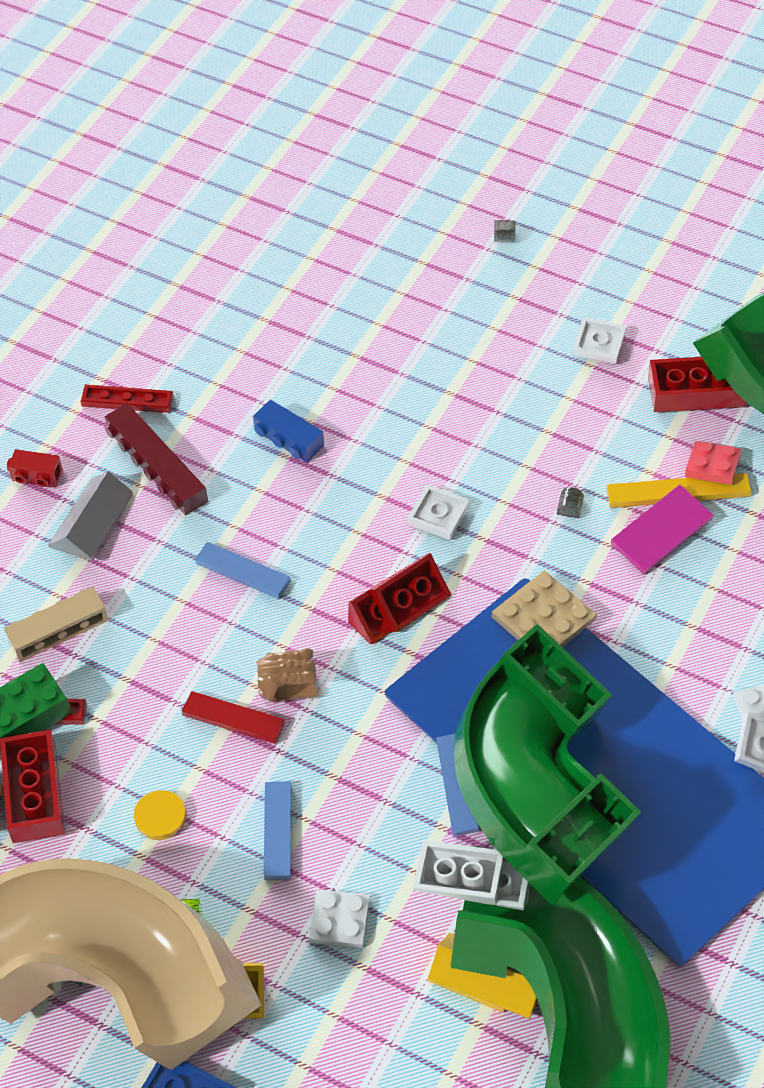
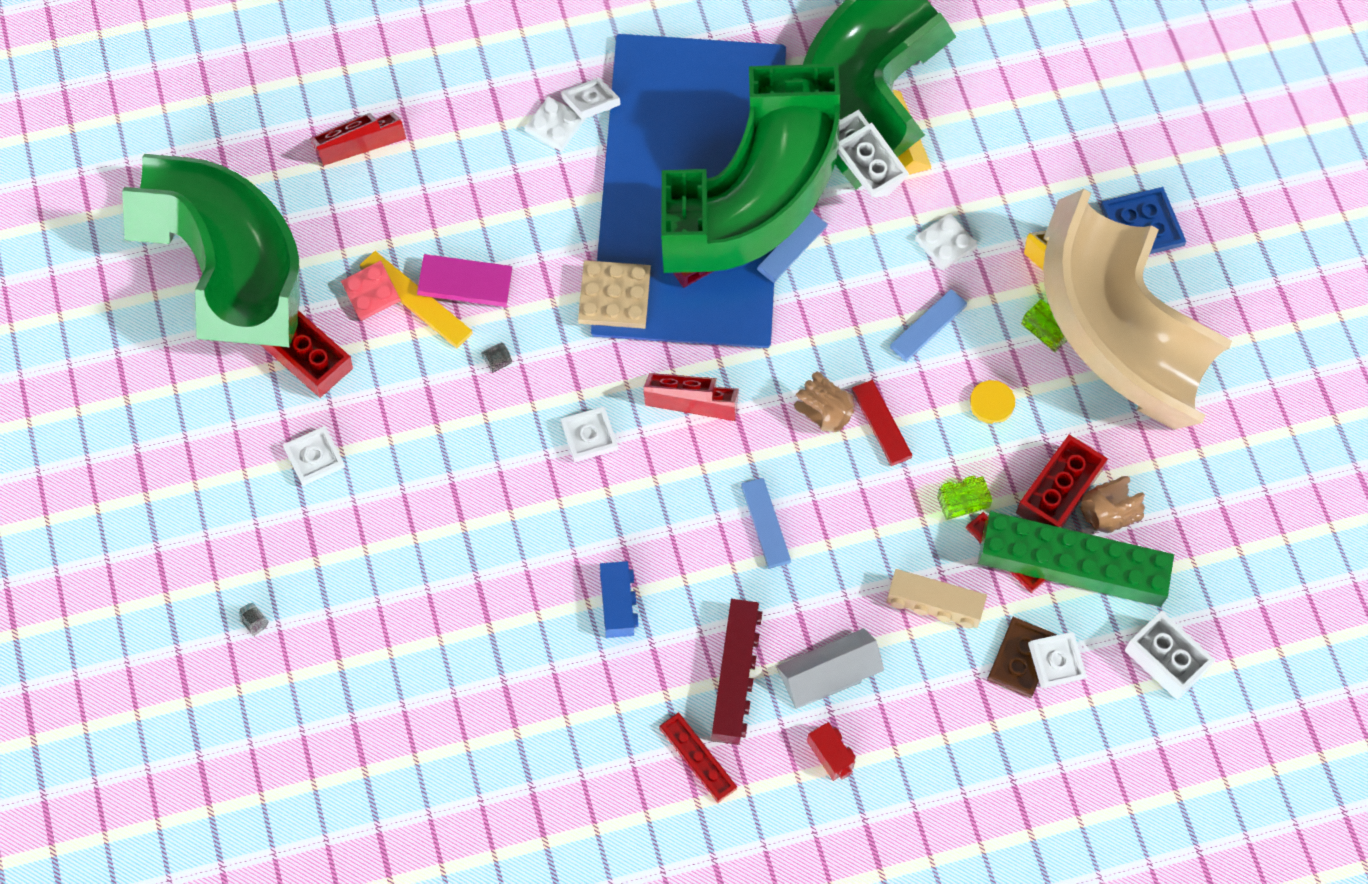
camera: 140 degrees left, 10 degrees up
(106, 714) = (964, 497): none -> clear neon green brick

